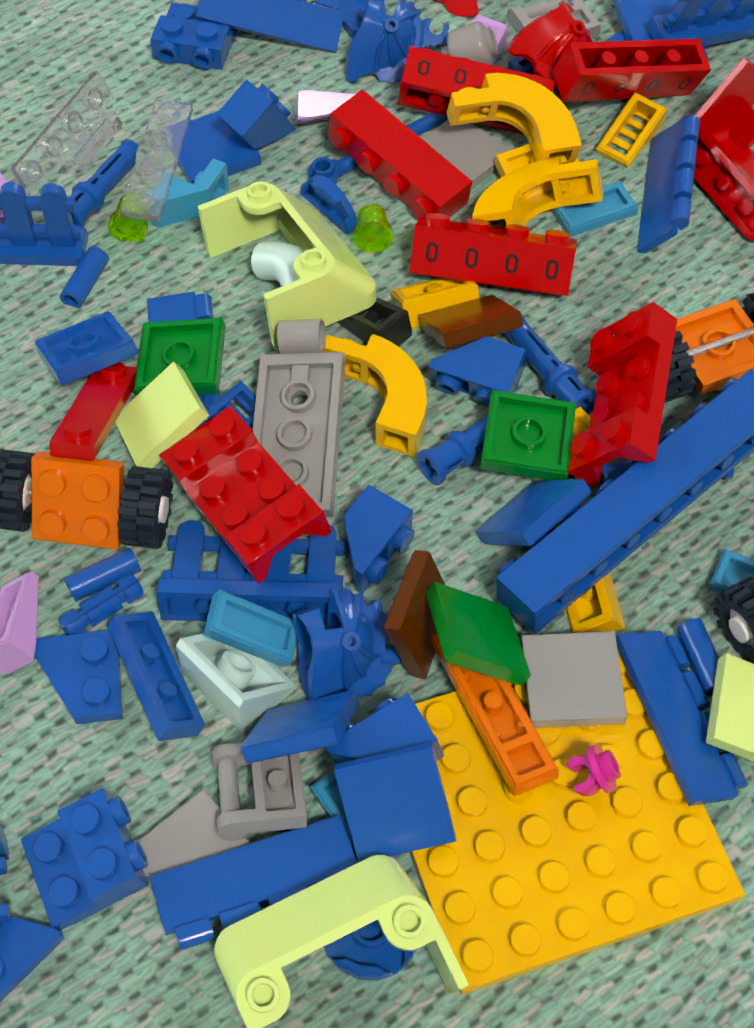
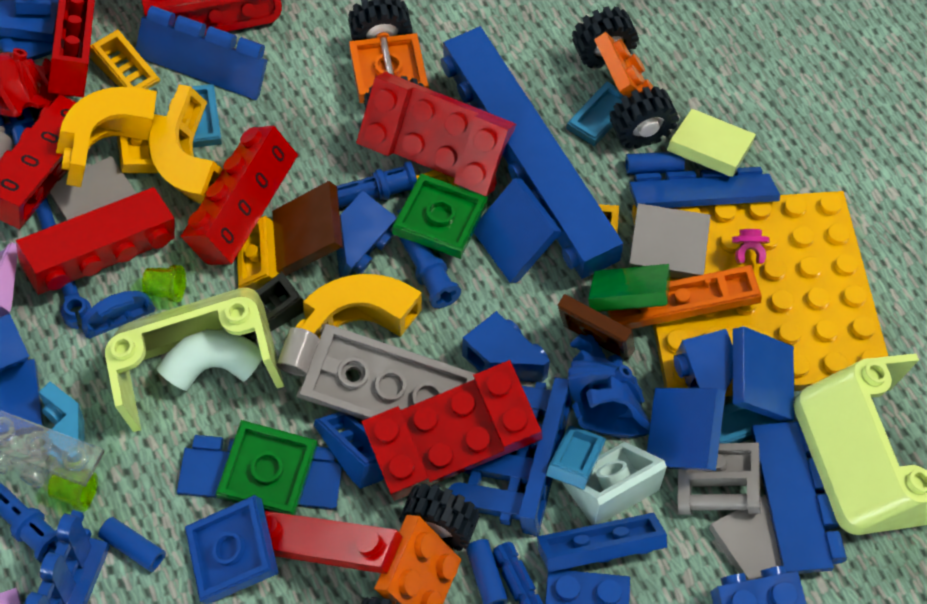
camera: 80 degrees left, 0 degrees up
(160, 416) = (344, 485): yellowish green tile -> none

